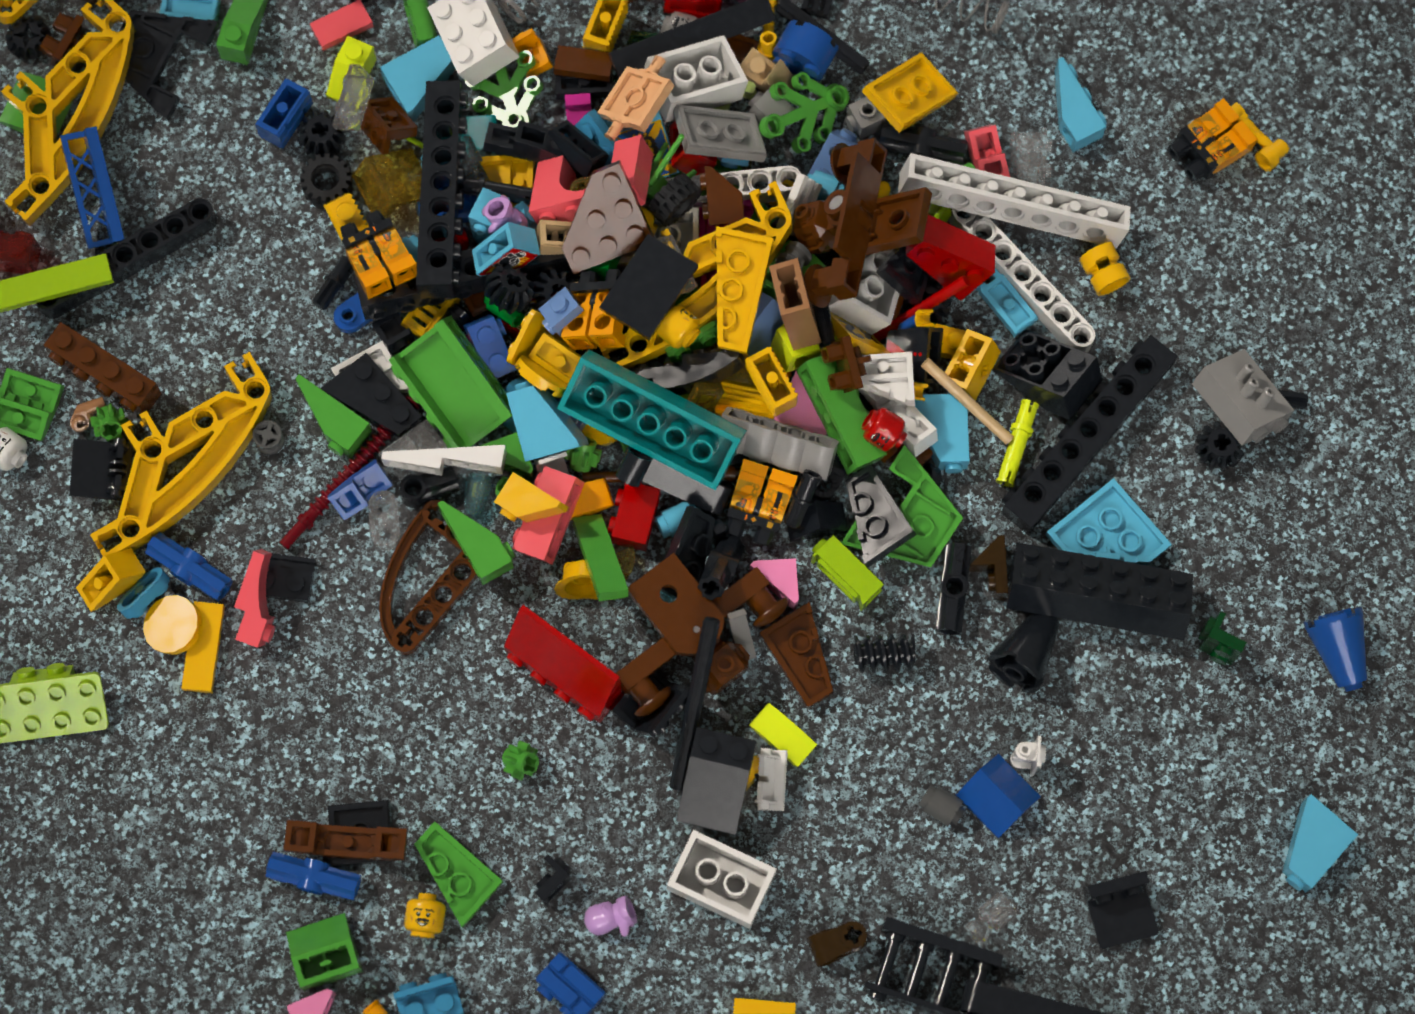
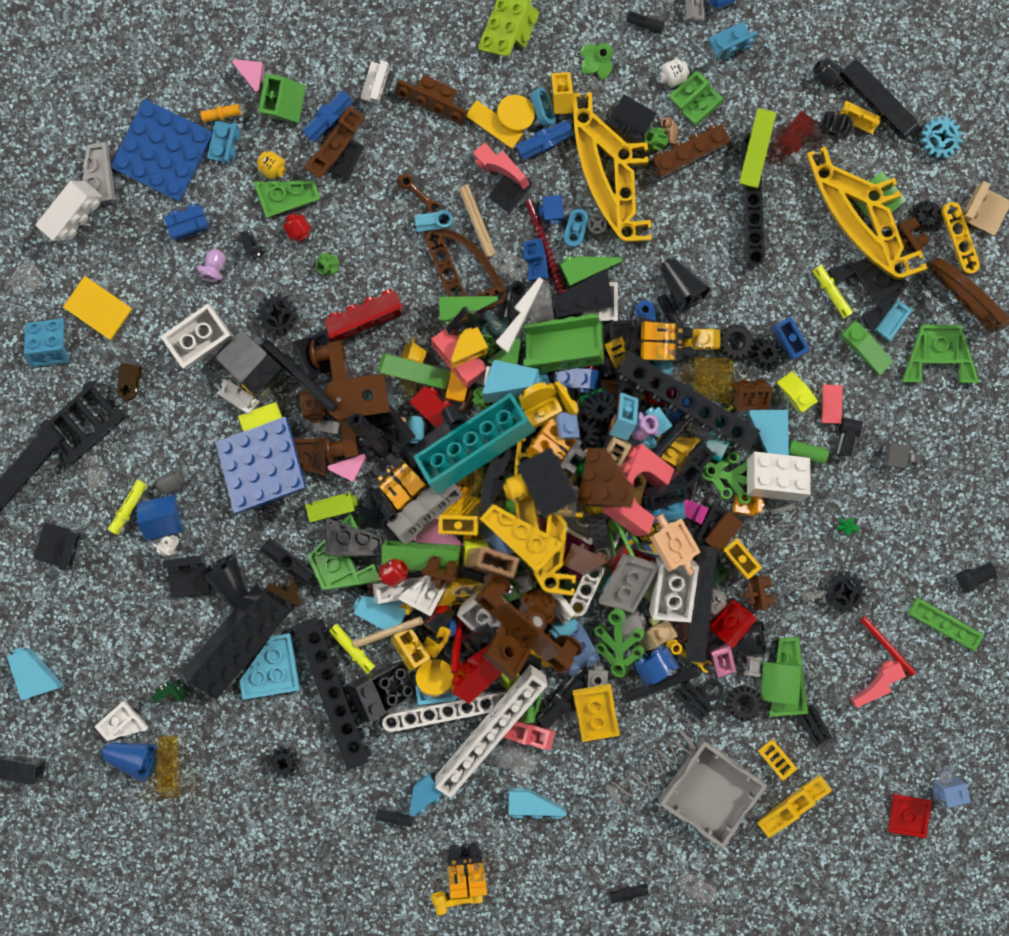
camera: 120 degrees right, 15 degrees up
(44, 560) = (595, 62): none -> bright green plate
(102, 183) = (804, 208): blue fence -> none
(187, 107) = (832, 291): none -> neon yellow pin
(208, 747) = (433, 97): none -> reddish brown bracket
(230, 836) = (375, 82): none -> white bracket
(279, 505) = (552, 209): none -> blue brick
(286, 458) = (576, 228): none -> dark azure plate
(287, 284) = (683, 285): none -> black cone
(349, 597) = (477, 221): none -> tan axle
(351, 726) = (415, 190): none -> reddish brown brick
(353, 99) = (775, 382): clear bracket -> none
(382, 653) = (431, 221): none -> medium azure piece
(492, 831) = (296, 227): none -> red head
(495, 524) = (466, 319): none -> black wing
(618, 781) = (268, 316): none -> black gear
(846, 691) = (260, 465): none -> plate
(990, 312) = (434, 678): none -> yellow tile
(1023, 846) = (128, 505): none -> neon yellow pin
(1053, 711) = (186, 576): none -> black bracket
(1111, 276) = (417, 761): yellow wheel -> none
(1148, 248) = (424, 794): none -> dark azure slope
(1201, 269) = (394, 818): none -> black axle
(1246, 397) = (299, 794): light grey piece -> none
(1303, 689) = (121, 722): none -> white wing
(1320, 591) = (168, 768): none -> clear yellow slope

